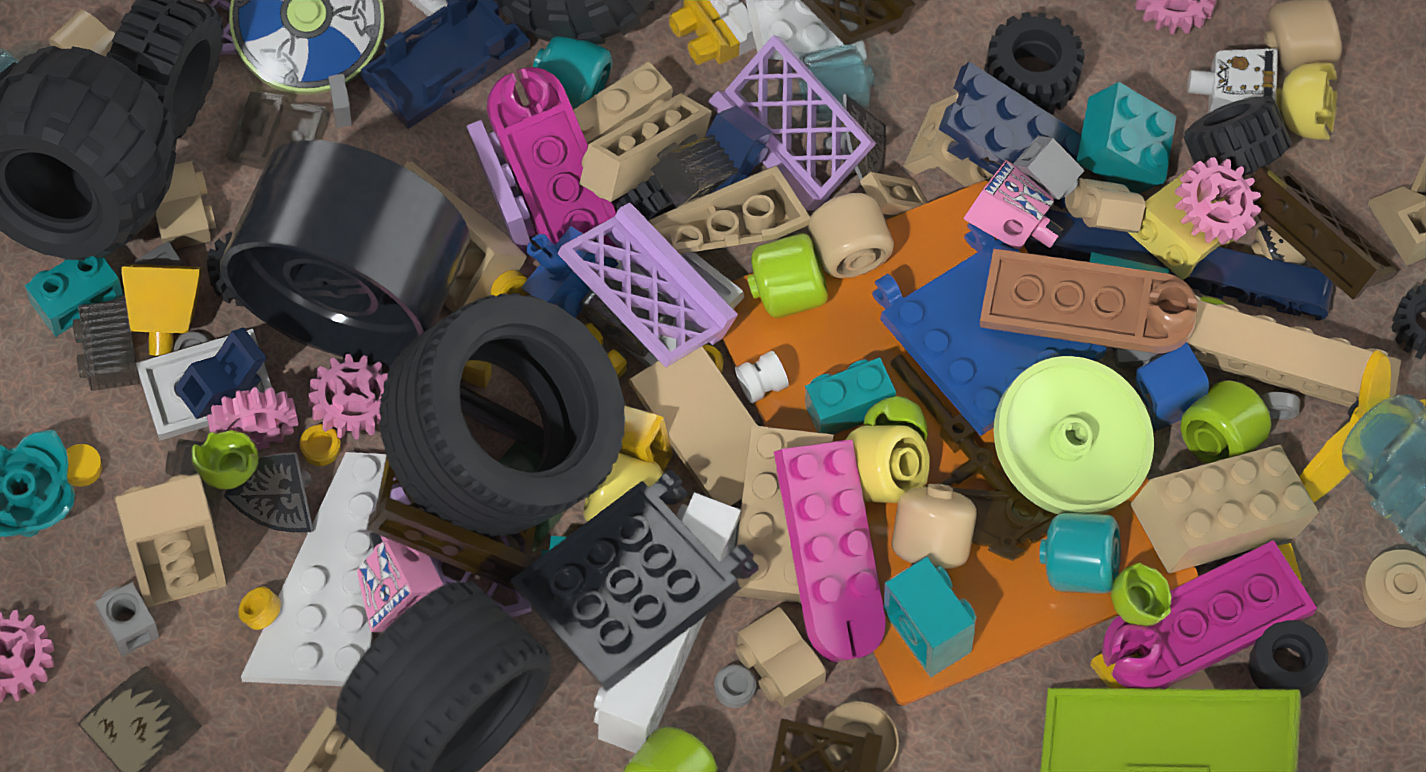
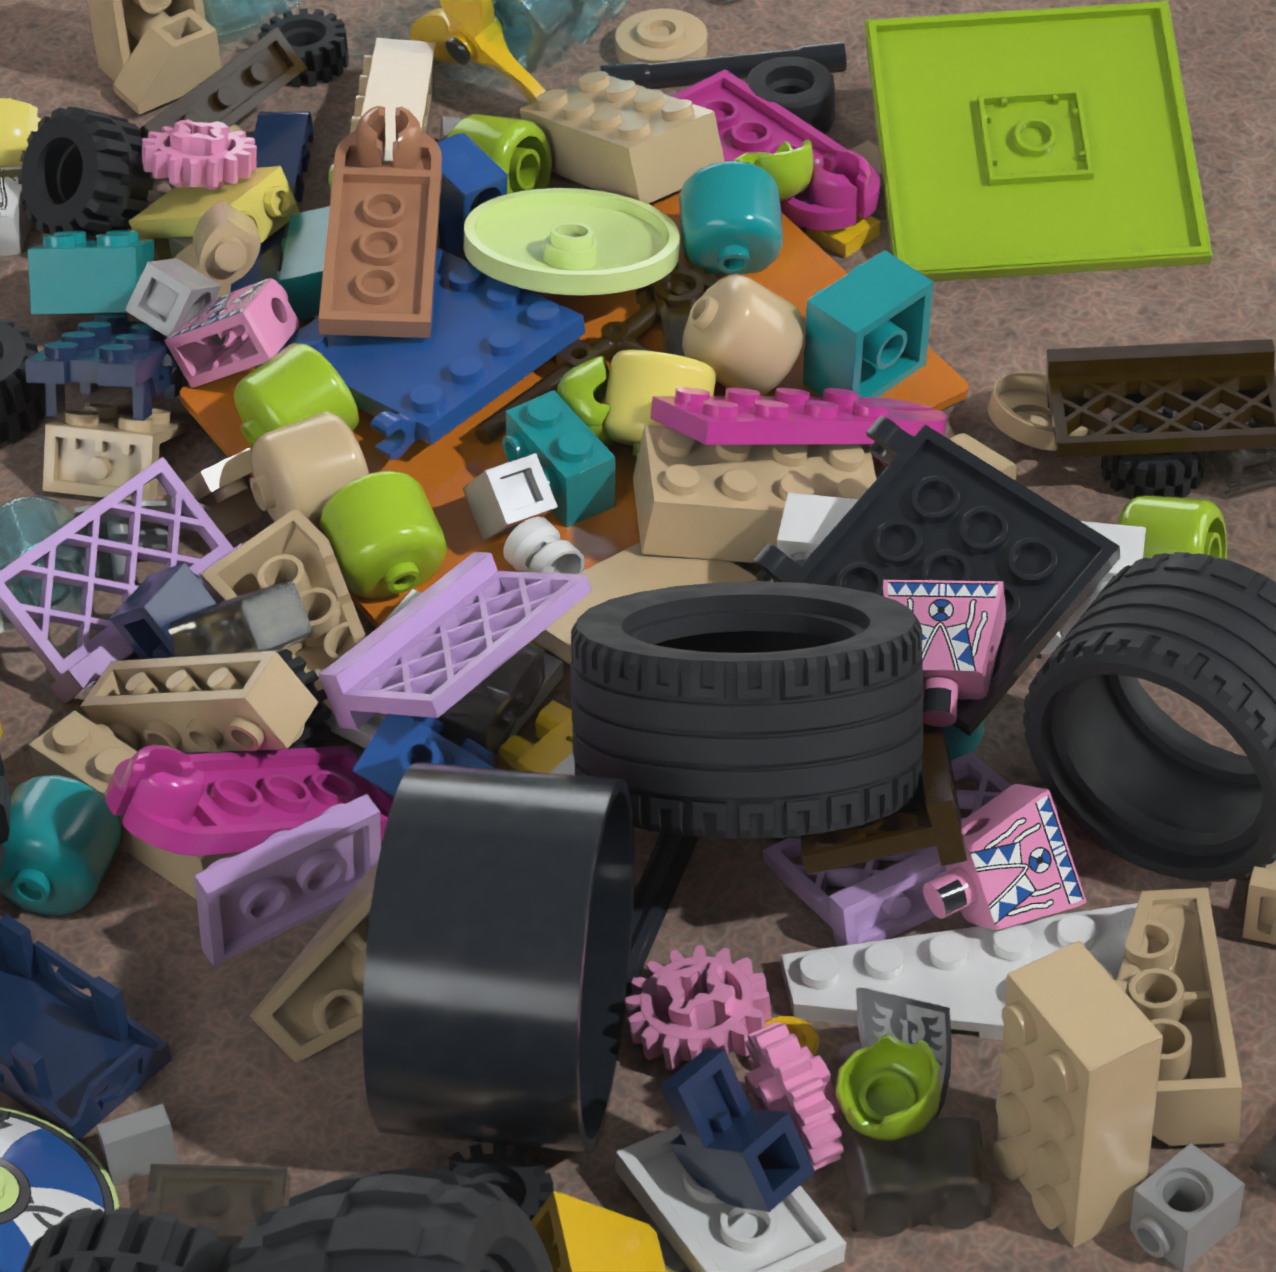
camera: 95 degrees left, 20 degrees down
(241, 639) = (1179, 985): none -> tan wedge
(556, 559) = (959, 639): none -> torso
(807, 355) = (509, 496): none -> brick
(927, 235) = (291, 388): none -> lime head
(1356, 689) = (692, 71): none -> black piece

